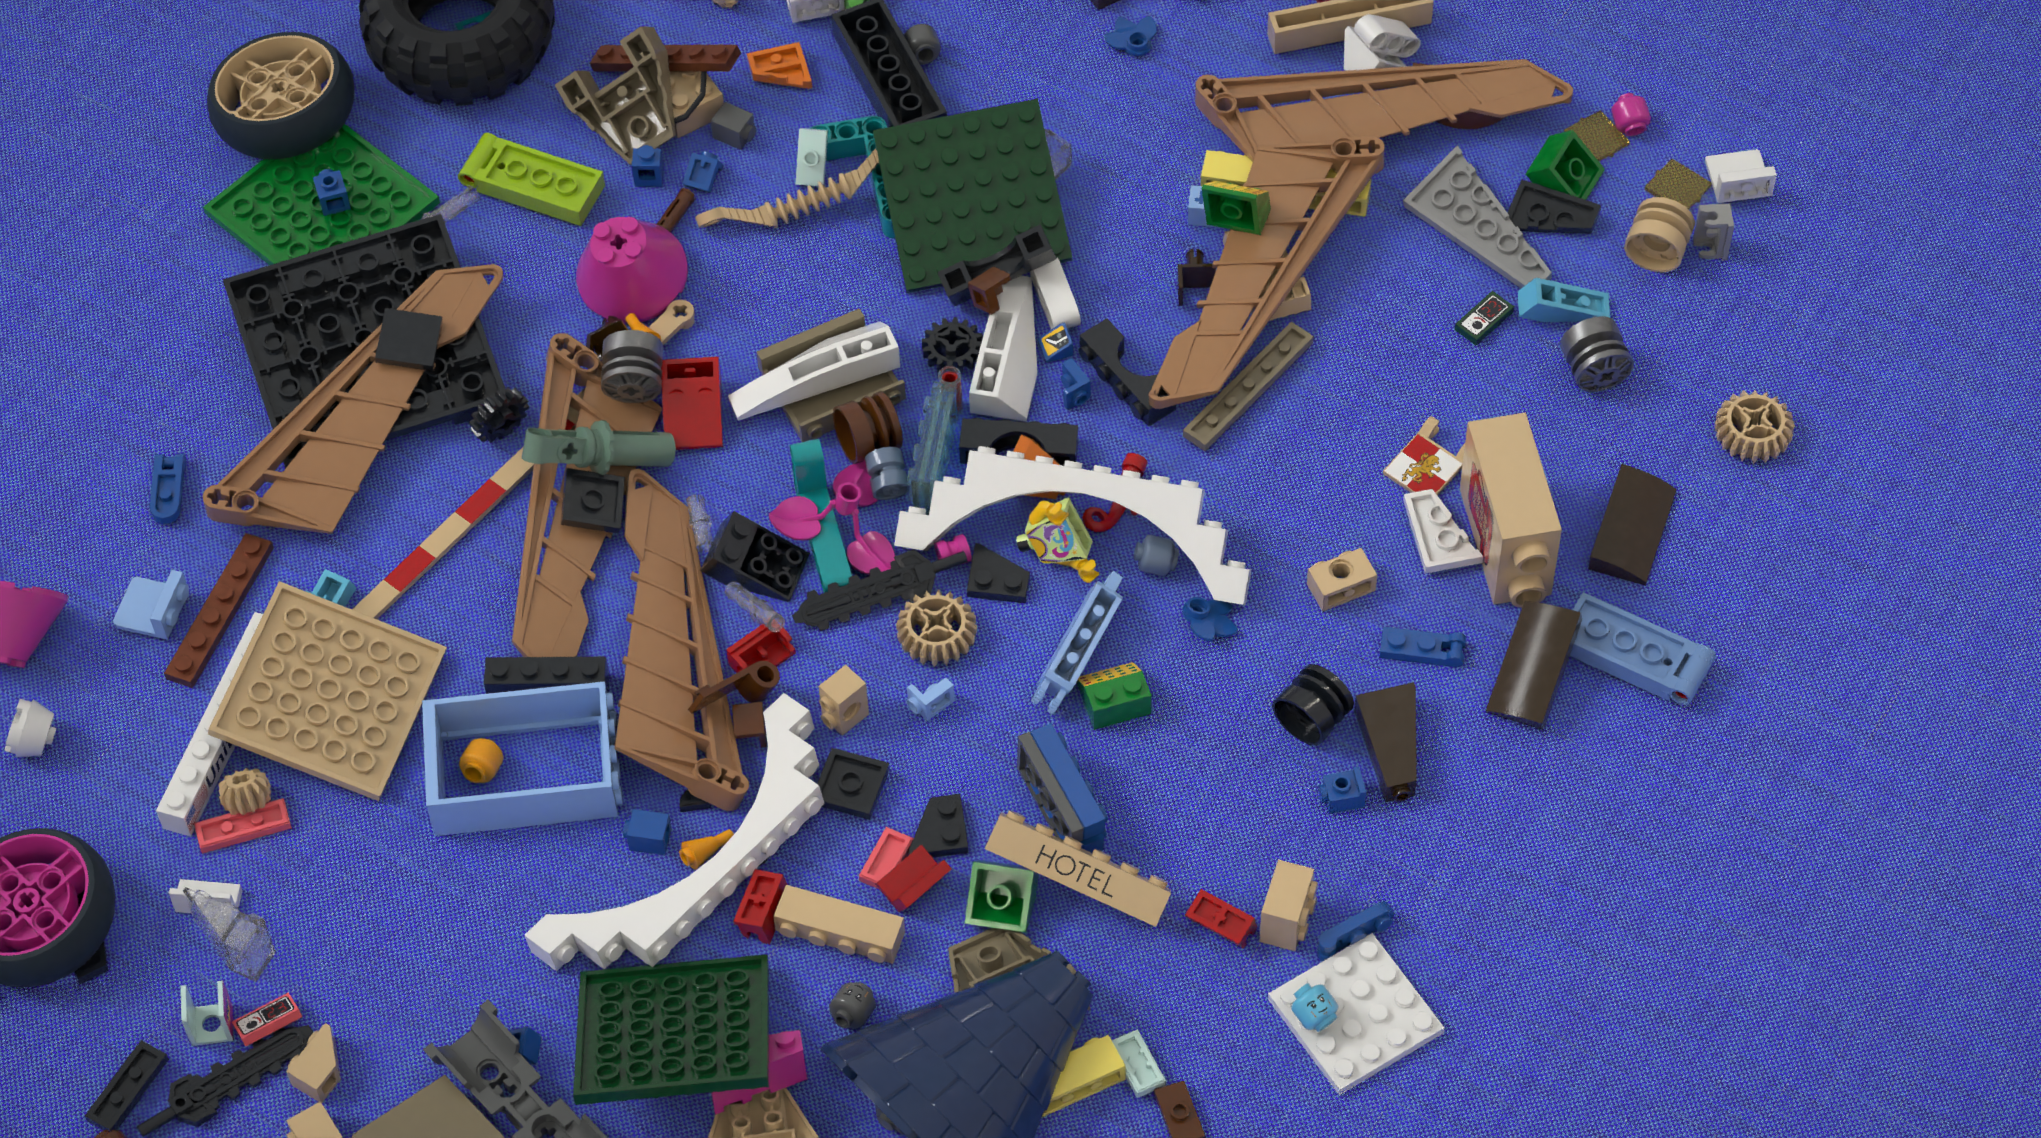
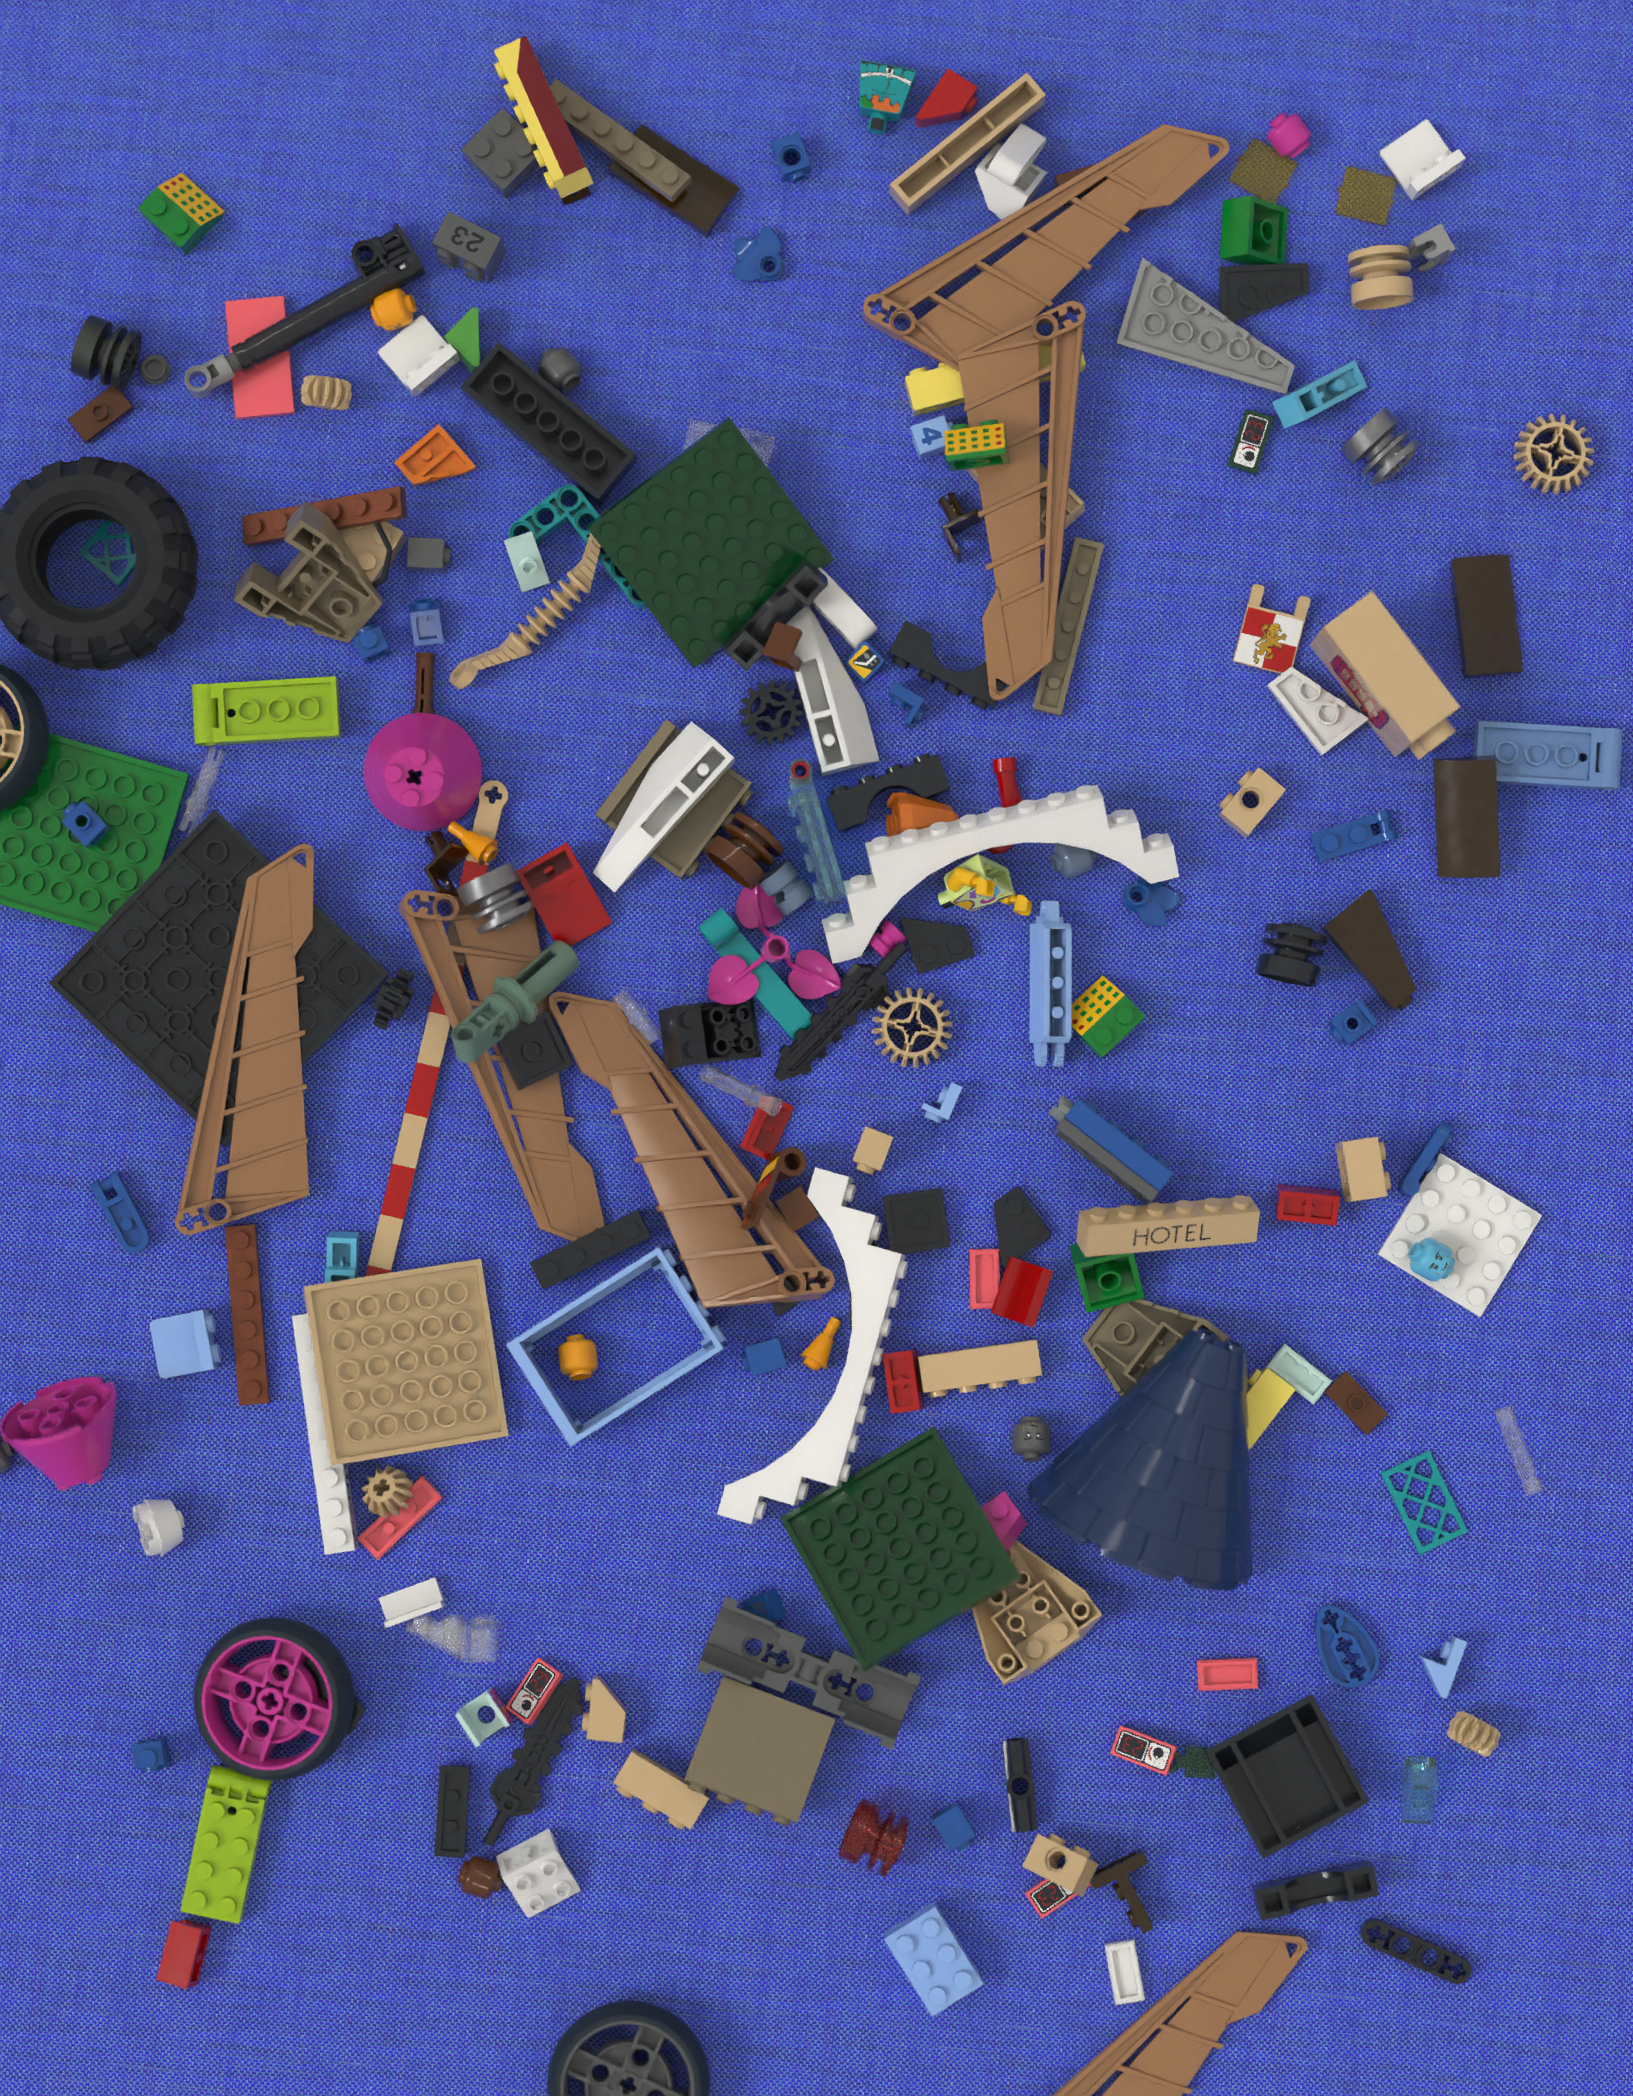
camera: 25 degrees left, 30 degrees up
(408, 339) = (268, 967): black tile -> none

